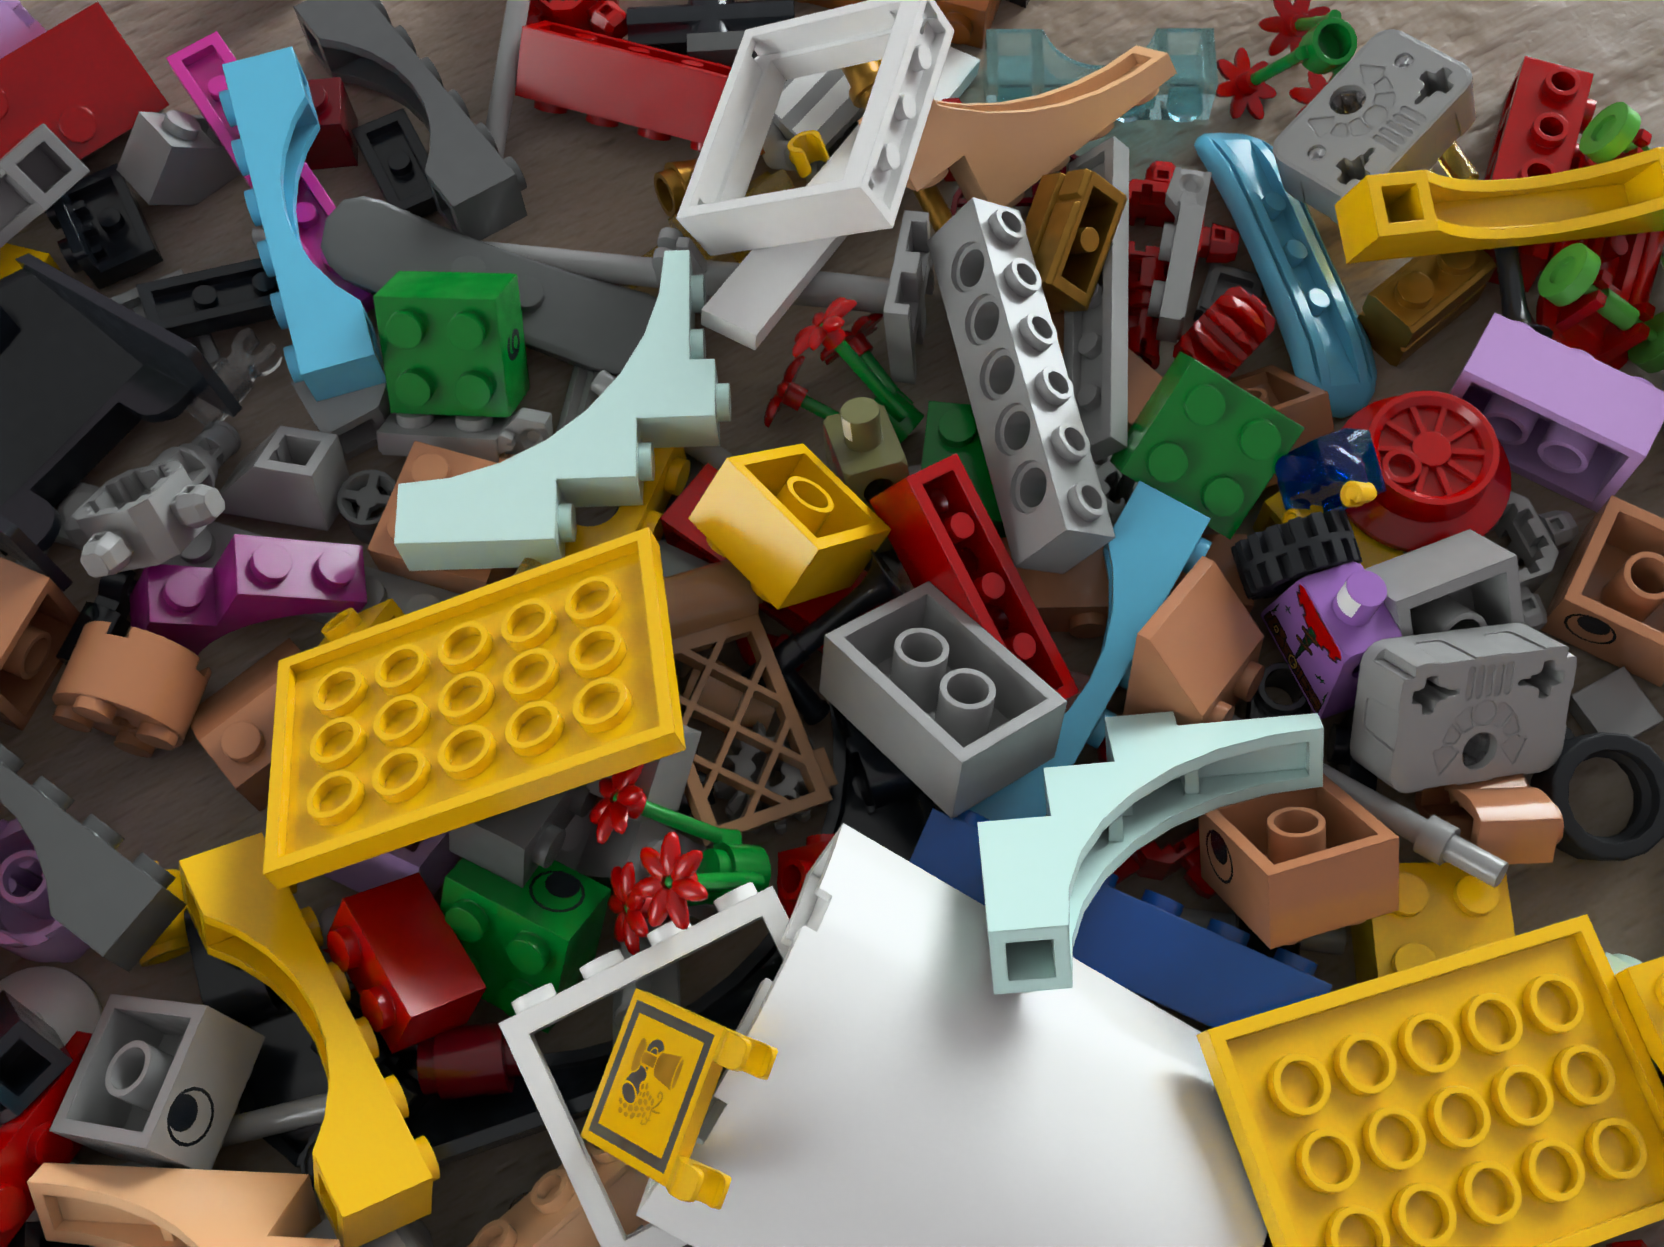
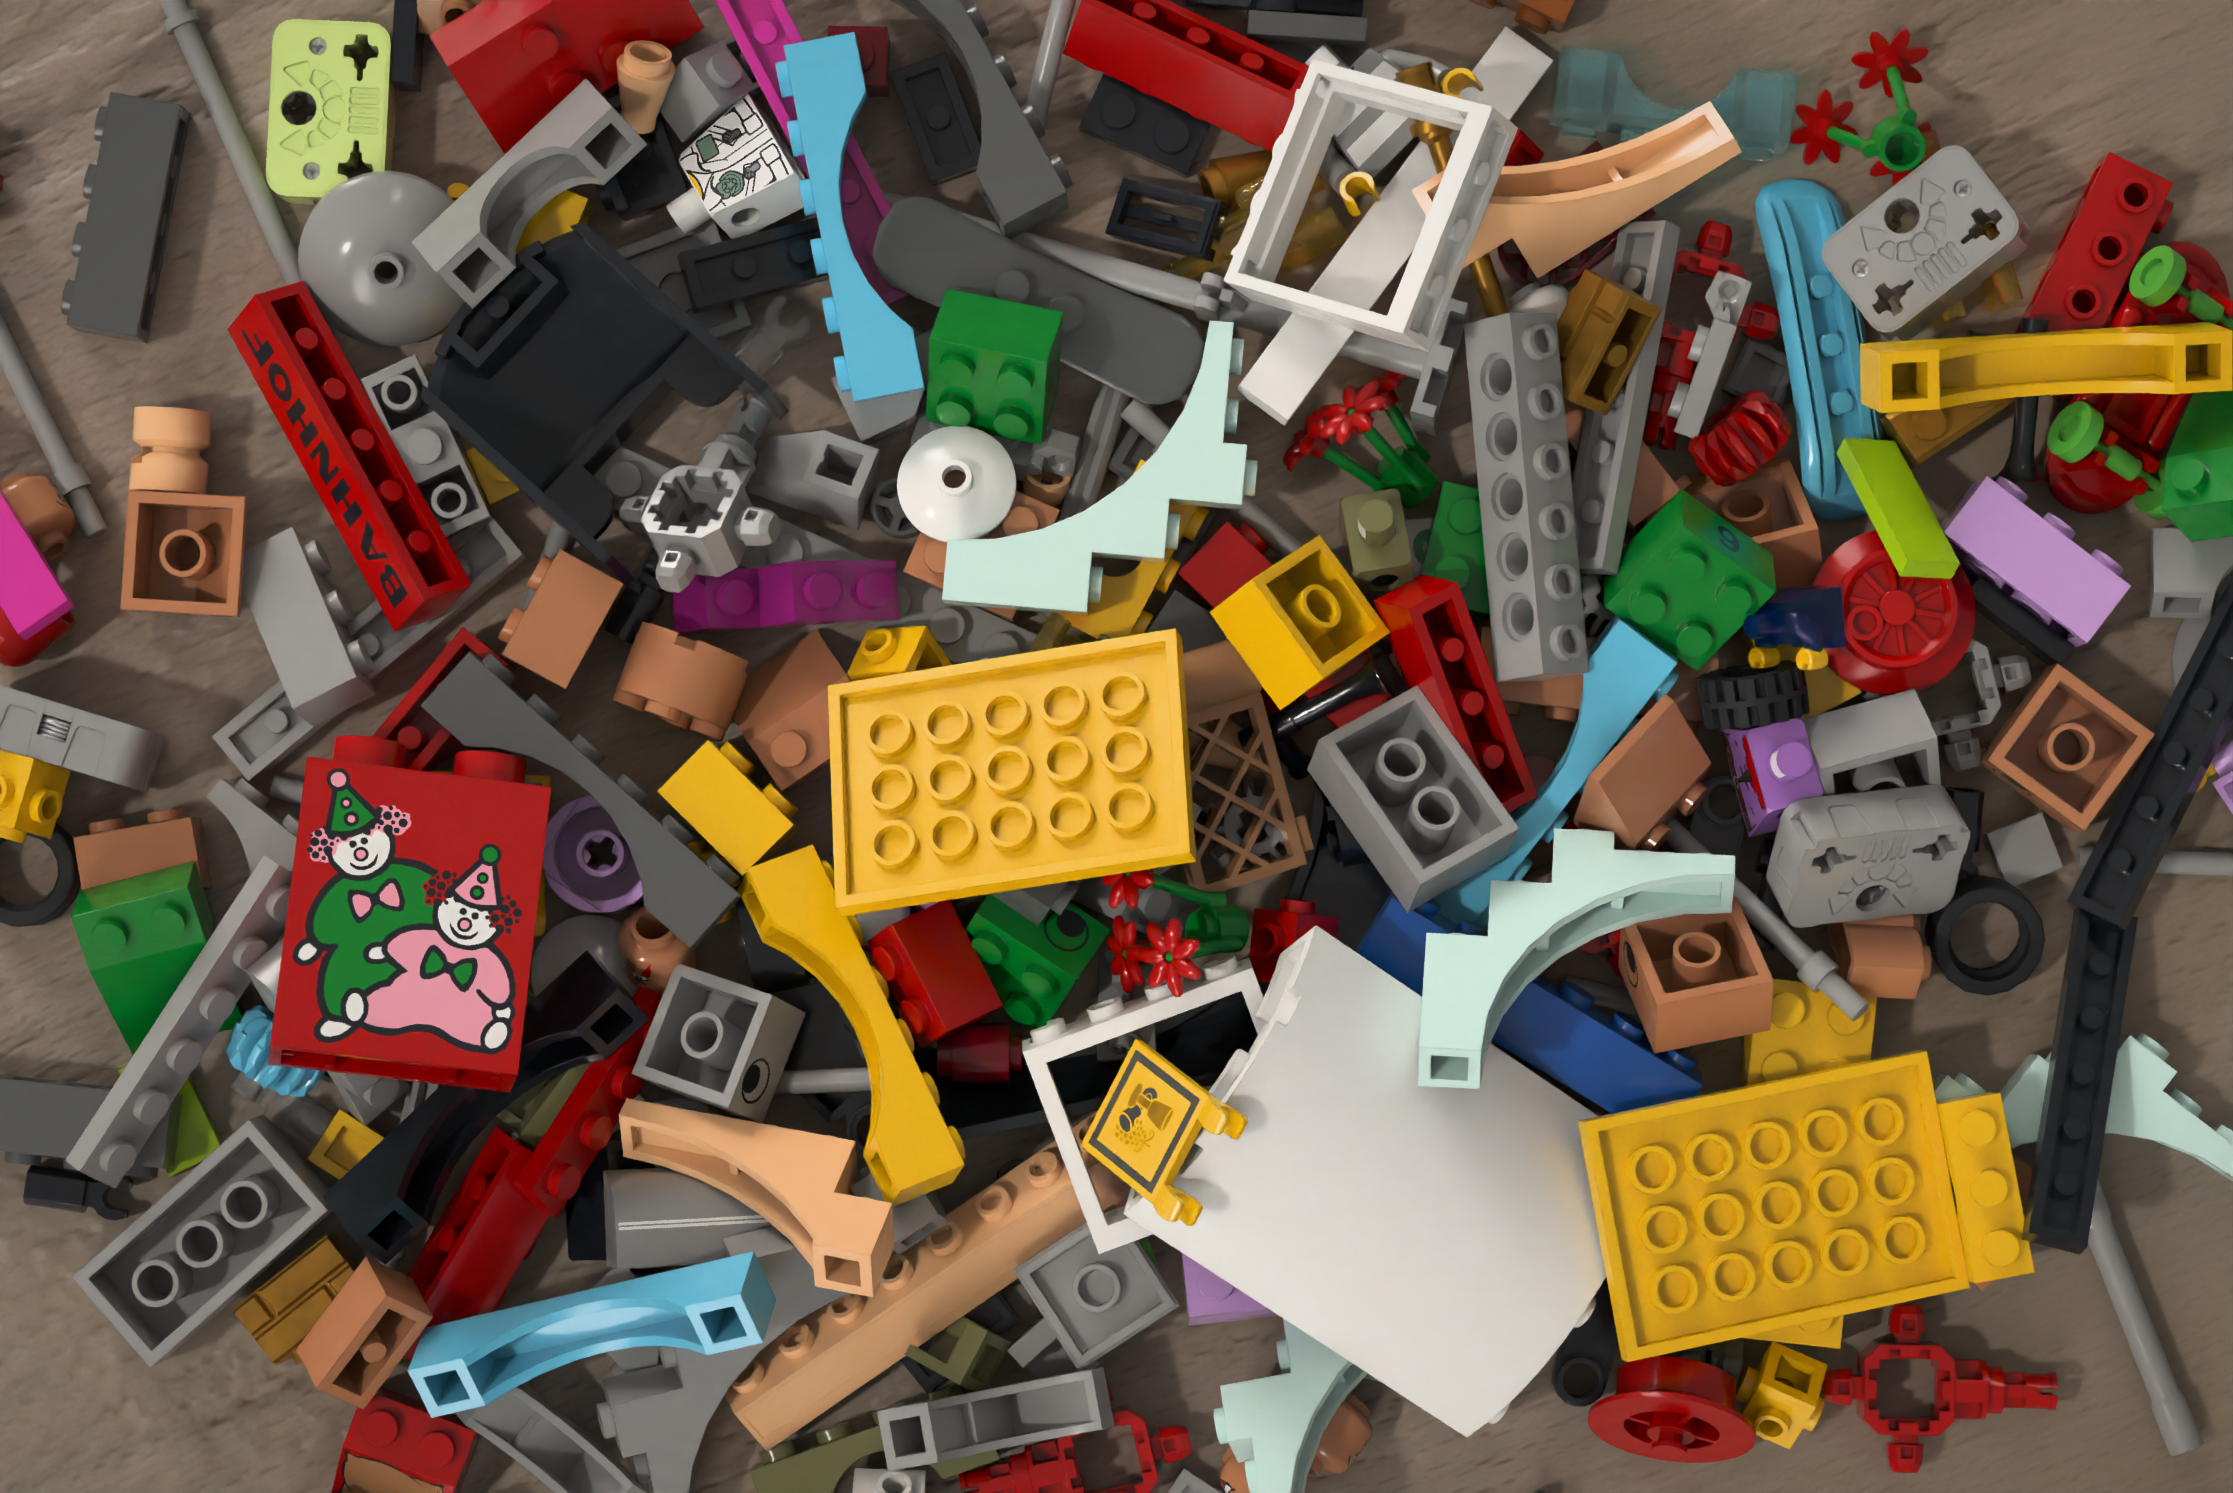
camera: 10 degrees right, 20 degrees up
(85, 982) = (651, 950): none -> nougat head
(101, 145) = (643, 82): none -> light nougat cone
(170, 800) = (729, 807): none -> yellow brick
(197, 222) = (738, 174): none -> white torso
(416, 447) = (963, 511): none -> white dish
(600, 157) = (1144, 126): none -> black plate
(625, 227) = (1206, 230): none -> black tile
(1409, 364) = (1898, 508): none -> lime tile
(1554, 482) = (2020, 623): none -> black tile

